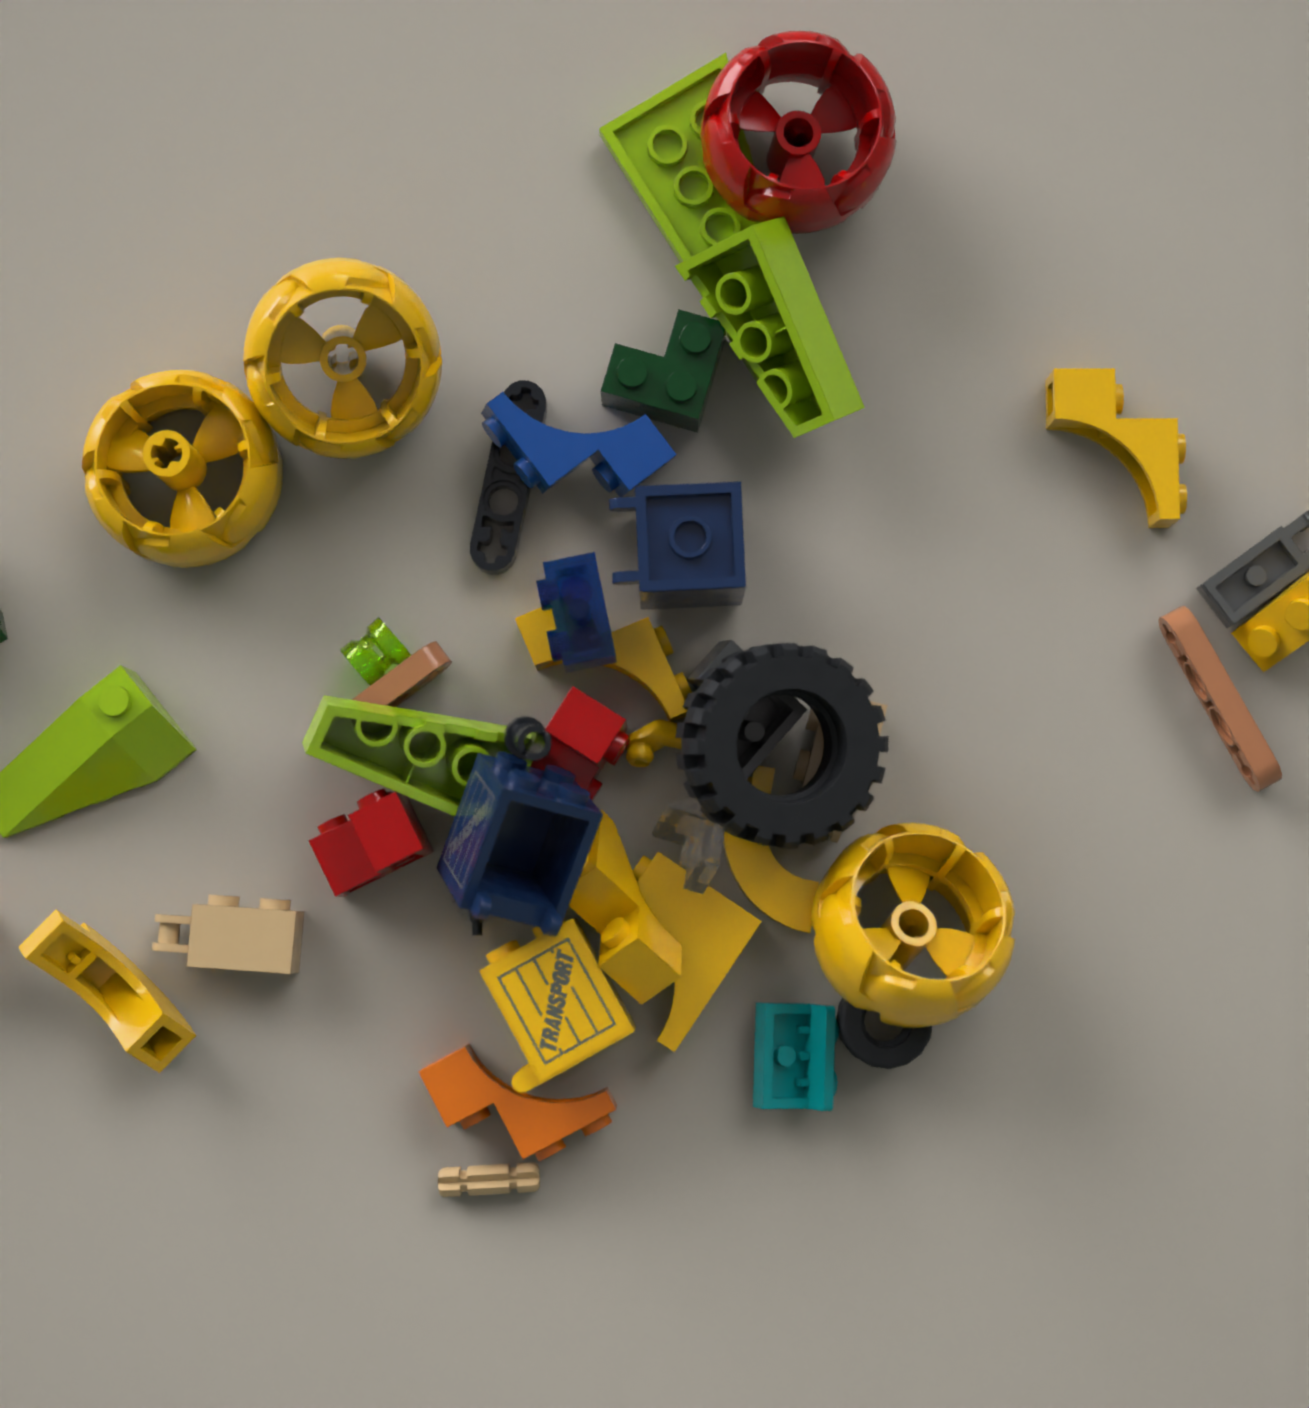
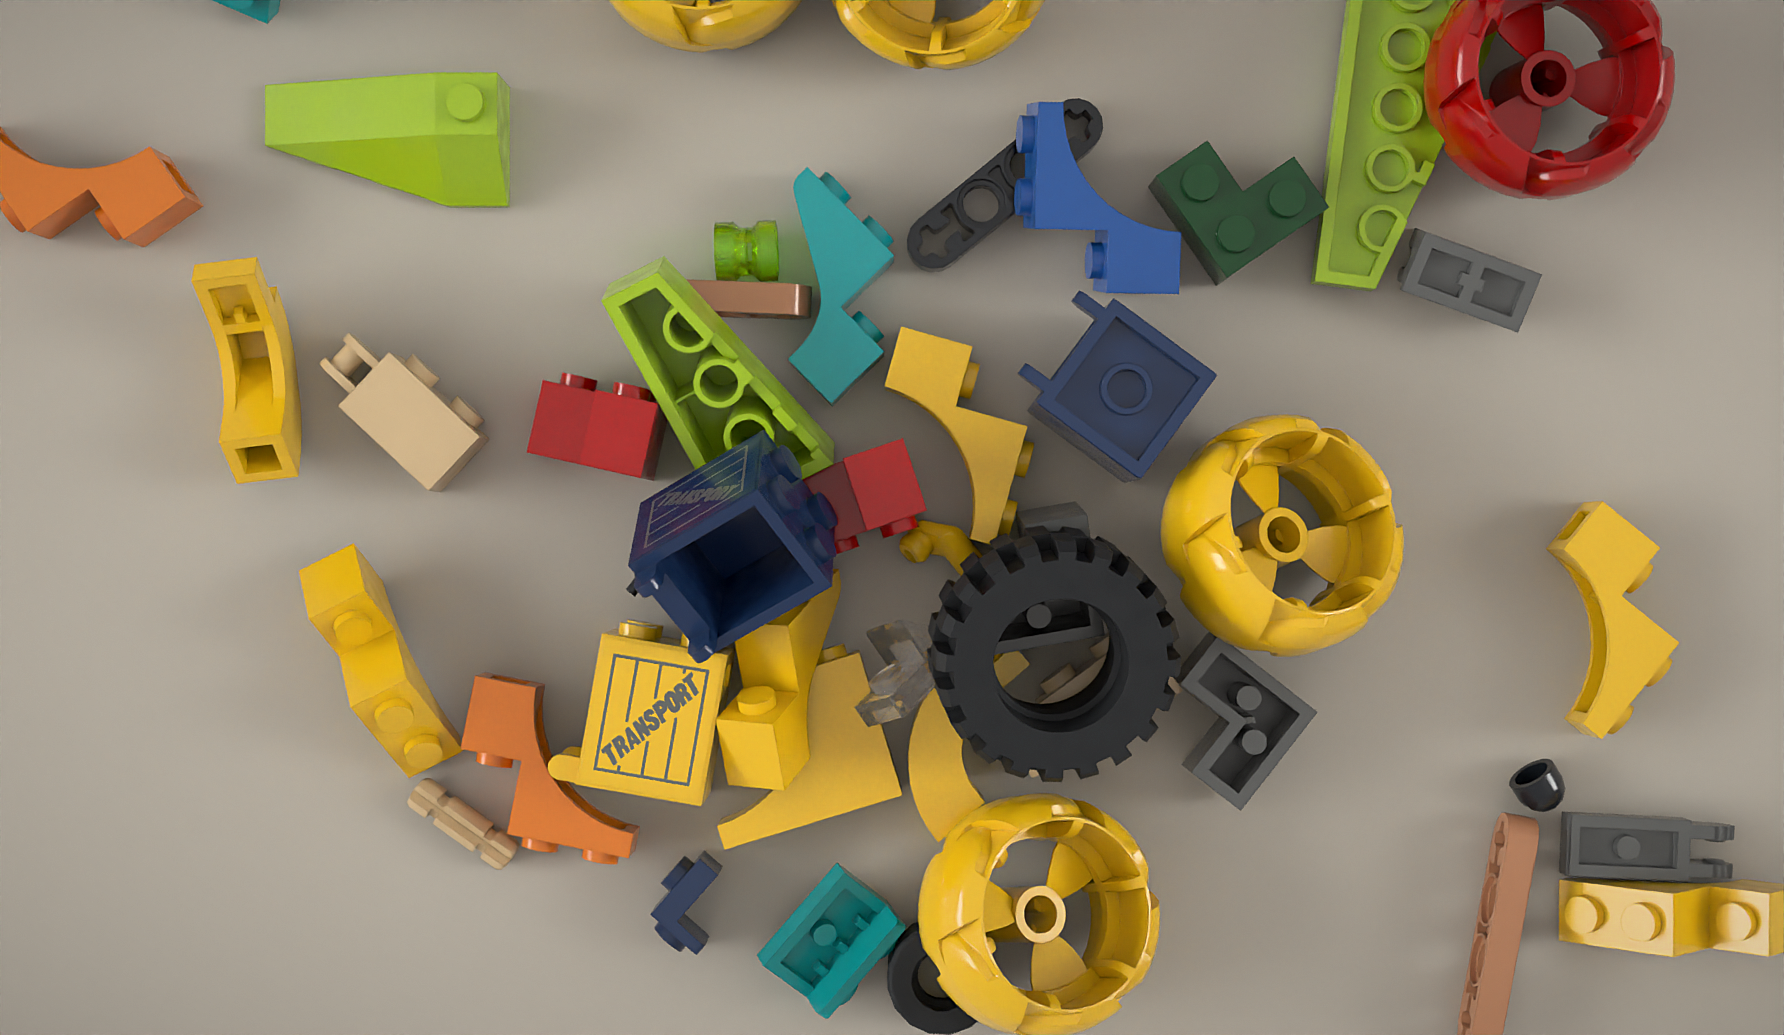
camera: 40 degrees right, 5 degrees up
(345, 1116) = (380, 676): none -> yellow arch
(446, 606) = (847, 261): none -> teal arch
(516, 733) = (824, 469): black pin -> none
(579, 613) = (966, 372): clear blue brick -> none
(668, 1099) = (684, 887): none -> dark blue bracket
(776, 323) = (1375, 247): lime wedge -> none
(855, 601) = (1233, 570): none -> yellow wheel
(864, 295) = (1468, 280): none -> dark grey hinge
(948, 685) = (1254, 720): none -> dark grey brick
(1167, 583) = (1538, 785): none -> black hinge

